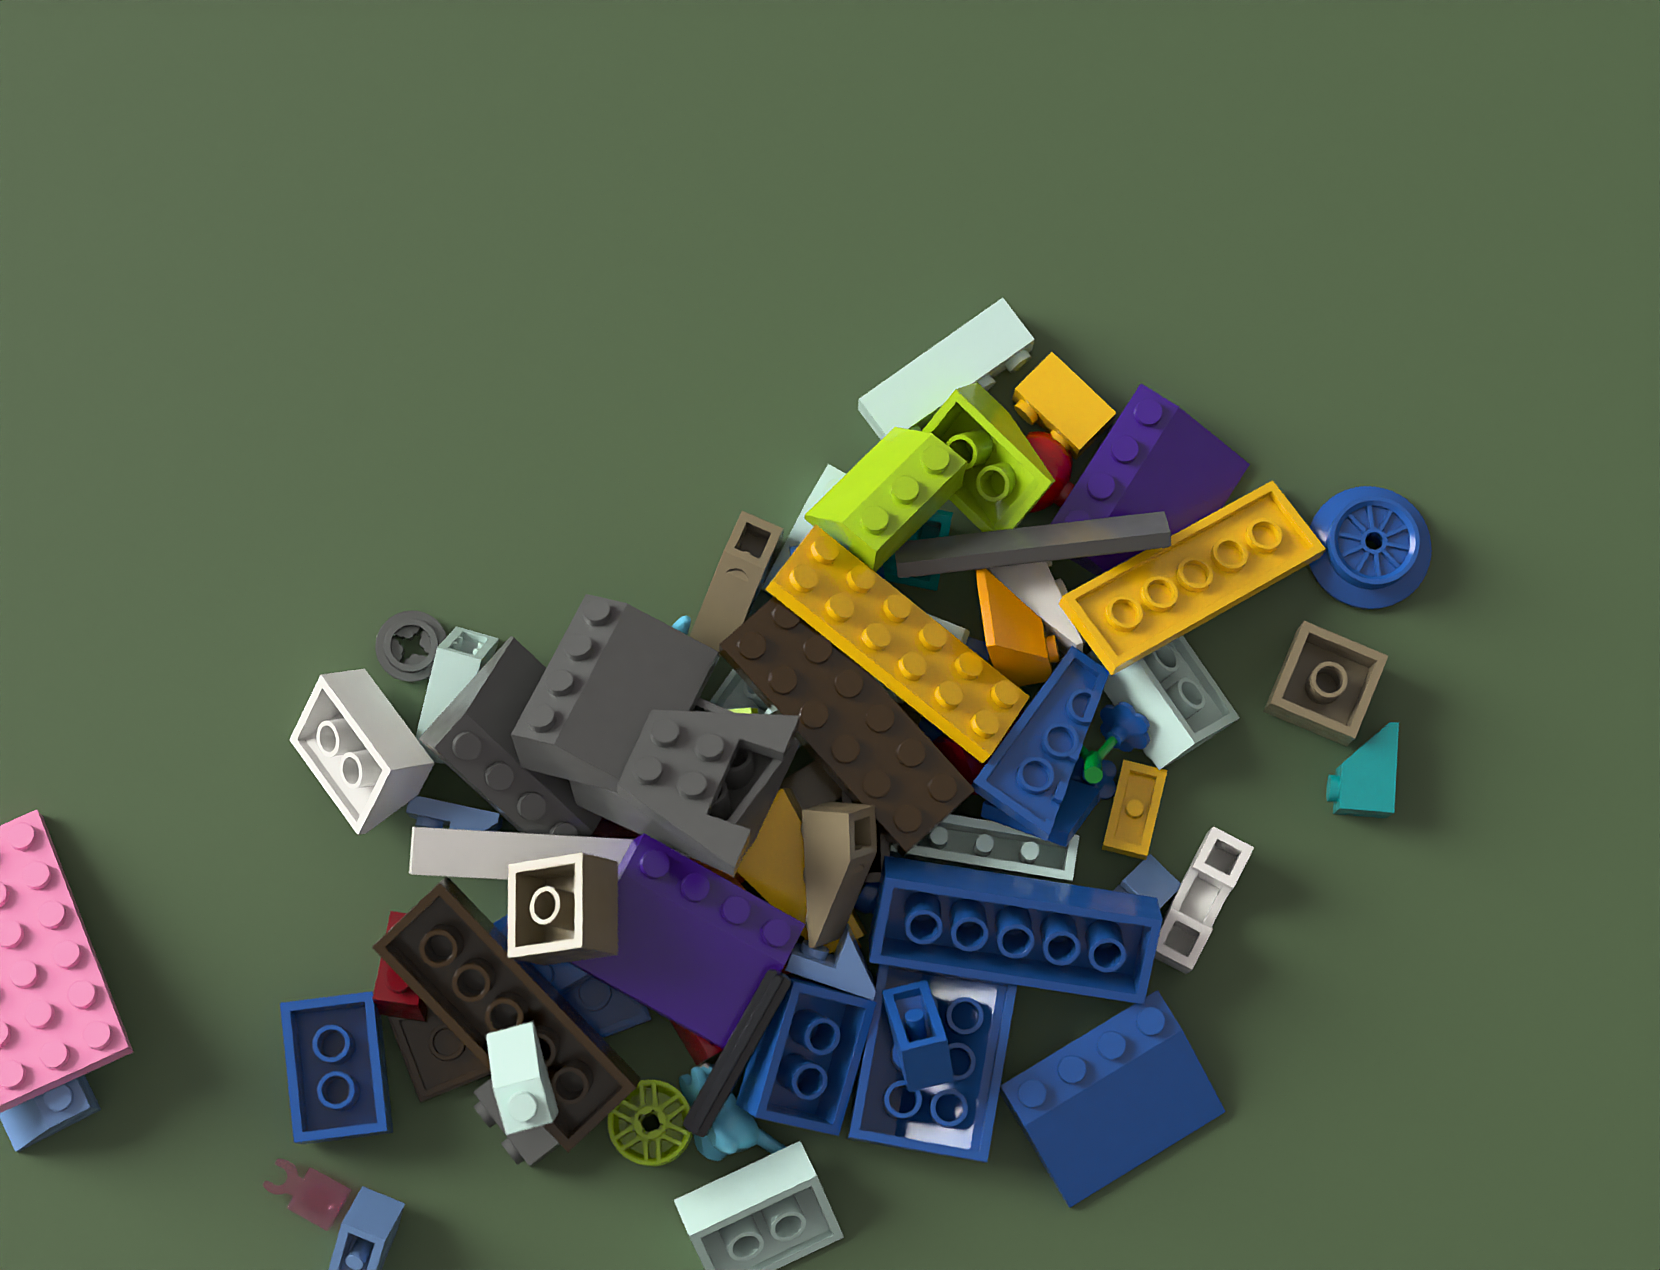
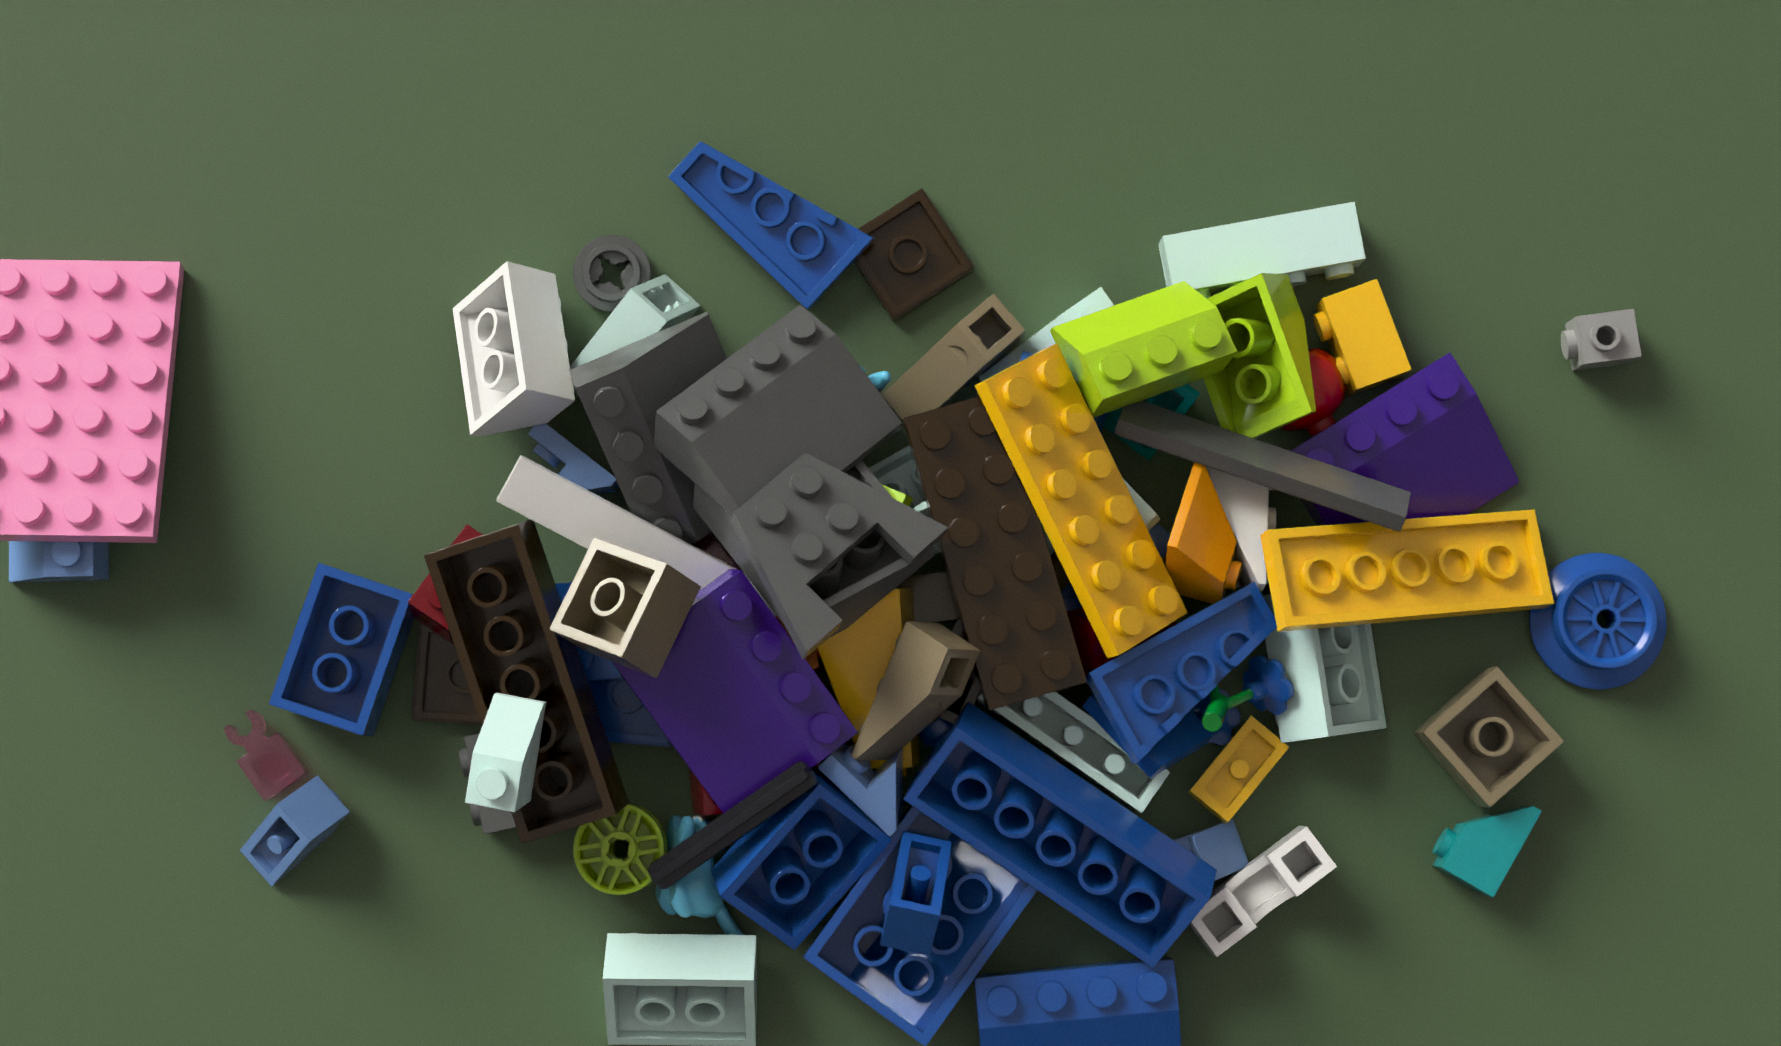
camera: 30 degrees right, 5 degrees up
(536, 543) = (777, 228): none -> blue wing
(653, 515) = (911, 256): none -> dark brown tile
(1259, 316) = (1601, 340): none -> light grey brick

